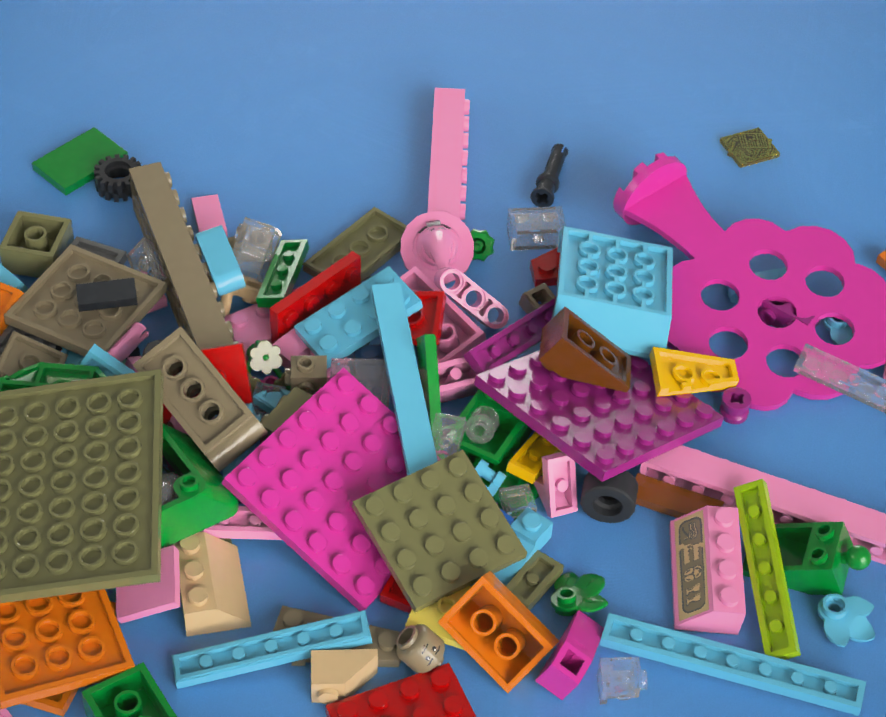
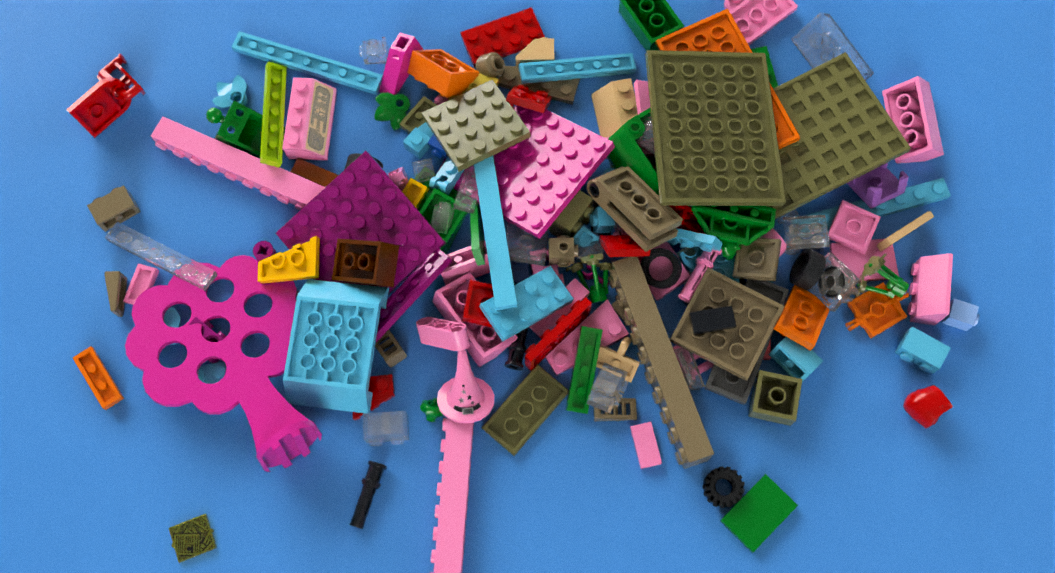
camera: 175 degrees left, 25 degrees up
(220, 260) = (632, 362): medium azure beam -> none
(353, 585) = (529, 99): none -> red plate

